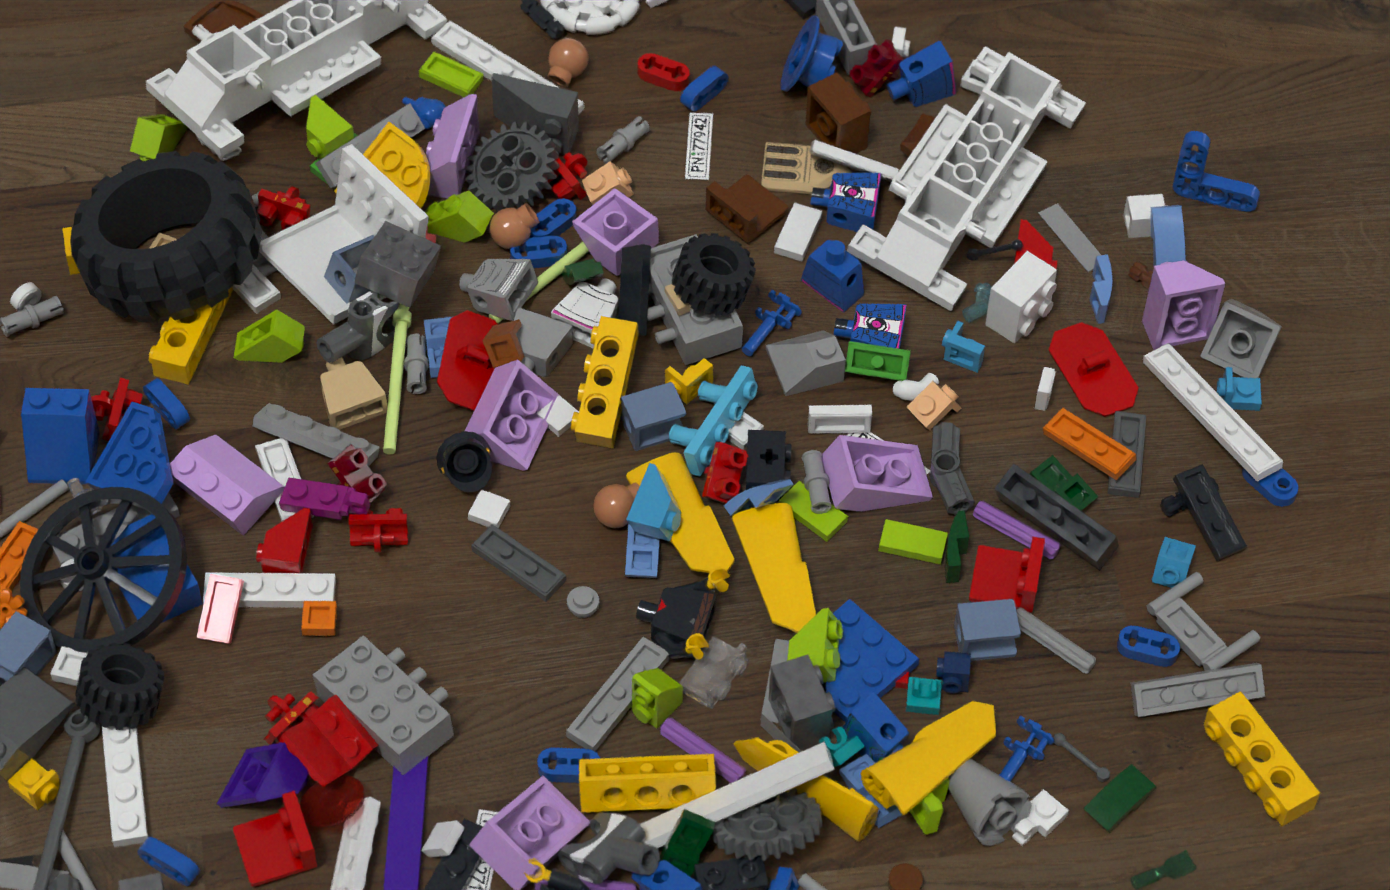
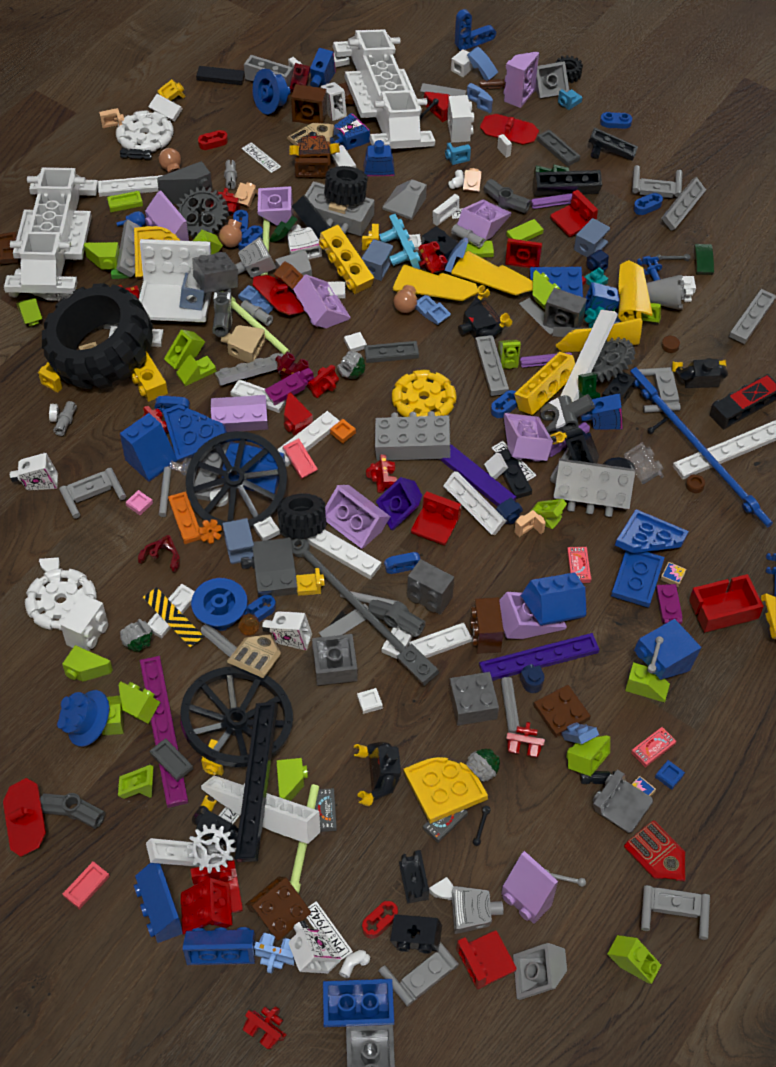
camera: 45 degrees left, 0 degrees up
(191, 744) = (355, 515): none -> lavender slope
(254, 382) = (195, 370): none -> lime slope
(329, 742) = (412, 463): red bracket -> none
(332, 803) = (439, 483): clear red dish -> none
(436, 537) = (352, 365): none -> light grey piece
(465, 461) = (329, 328): black piece -> none
(485, 644) = (422, 387): none -> yellow plate
(582, 601) = (435, 345): light grey plate -> none
(654, 507) = (426, 286): dark azure slope -> none
(704, 88) = (238, 133): blue beam -> none
(712, 675) = (518, 329): clear bracket -> none
(761, 186) = (314, 147): none -> torso
(770, 320) = (374, 195): blue piece -> none
(852, 160) = (332, 117): white tile -> none
(863, 568) = (523, 253): none -> red slope
(874, 325) = (420, 169): torso -> none
(877, 361) = (436, 178): bright green slope -> none
(884, 123) = (336, 98): none -> white torso
(956, 546) = (541, 216): dark green slope -> none
(981, 306) = (440, 130): clear light blue arm -> none
(1055, 641) = (623, 226): light grey axle -> none
(1089, 443) = (543, 152): orange tile -> none
(1173, 562) = (623, 169): dark azure bracket -> none
(1173, 868) = (747, 268): clear green piece -> none
(1213, 412) = (571, 110): white tile -> none
(1259, 741) = (732, 209): yellow brick -> none
(1293, 357) = (574, 66): none -> black tyre

